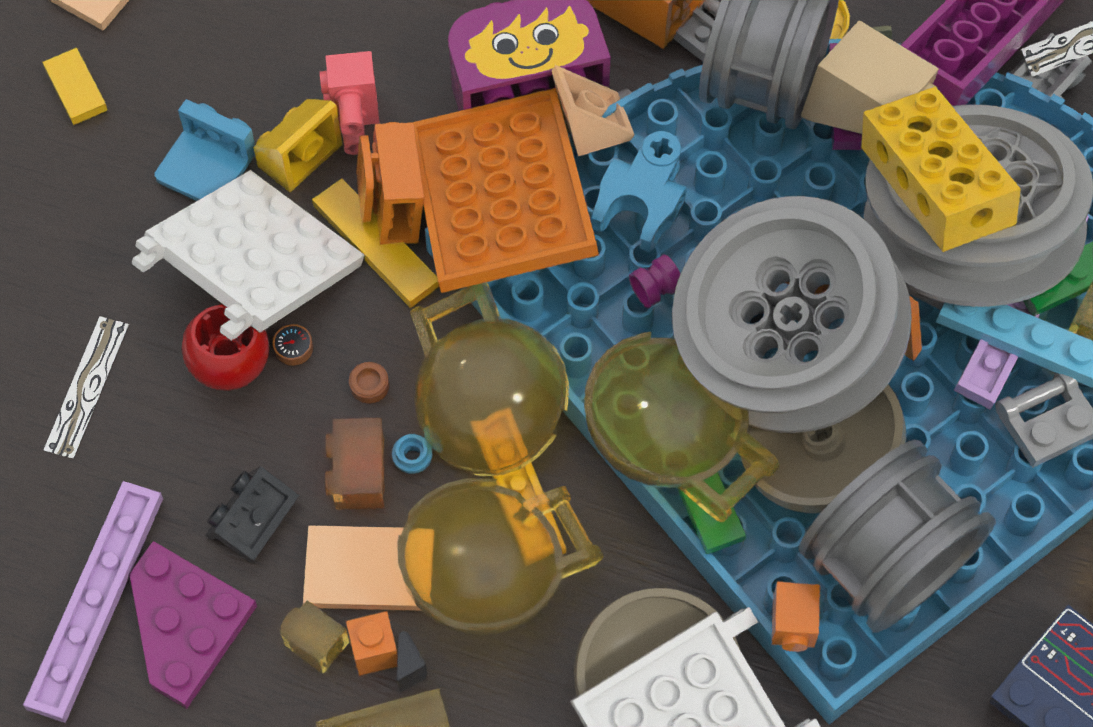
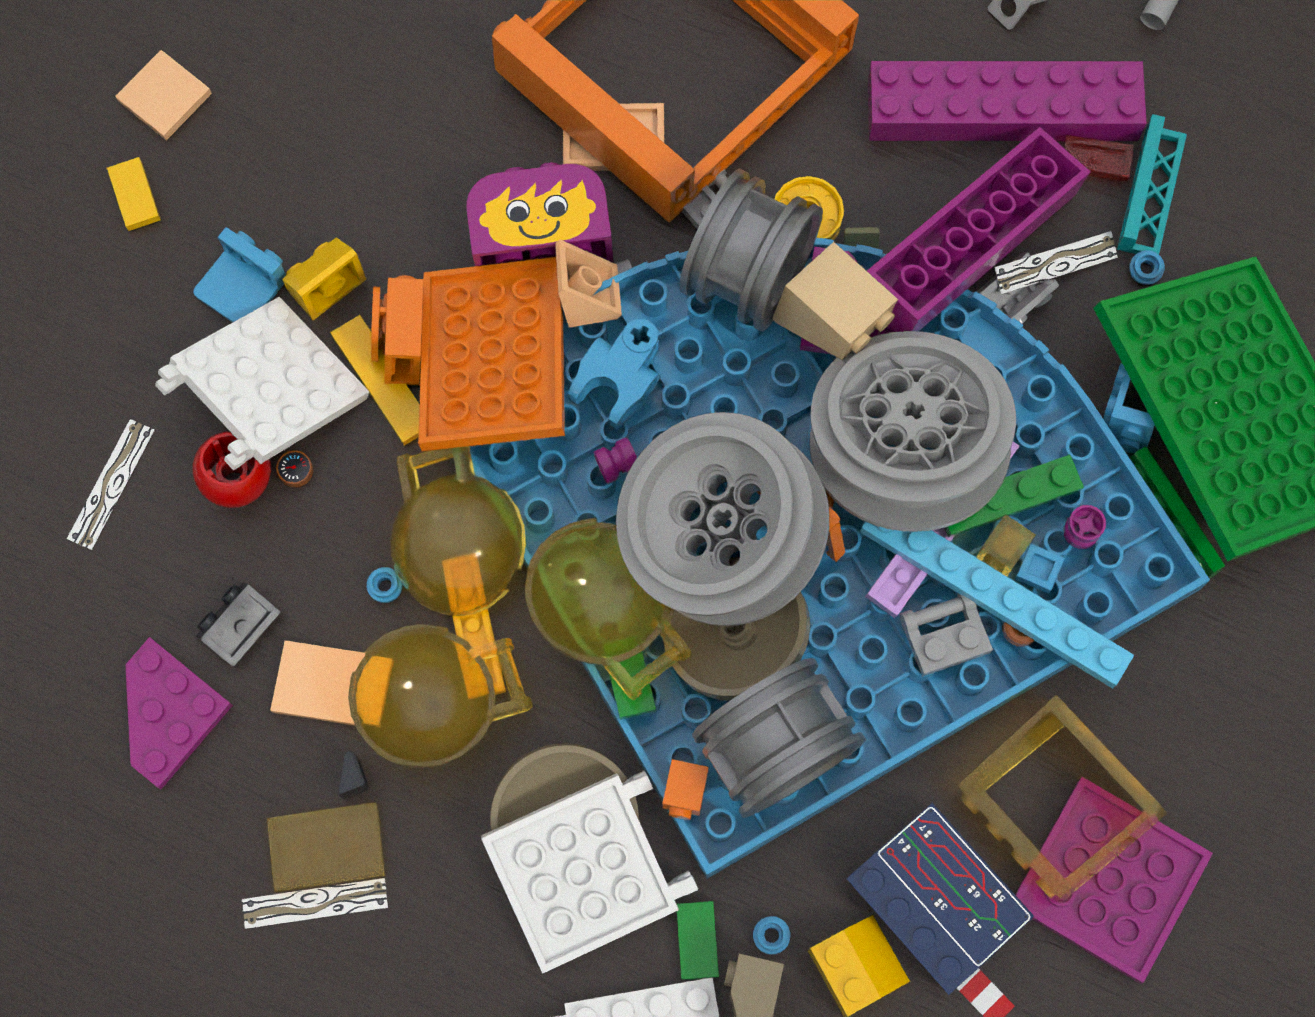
camera: 10 degrees right, 10 degrees up
(93, 602) = (92, 684): lavender plate -> none
(313, 636) = (274, 742): clear yellow brick -> none
(352, 88) = (378, 238): coral brick -> none
(357, 463) = (334, 589): clear orange brick -> none
(369, 382) = (357, 512): dark orange tile -> none
(372, 643) = (323, 755): orange brick -> none
(940, 169) = (873, 405): yellow brick -> none

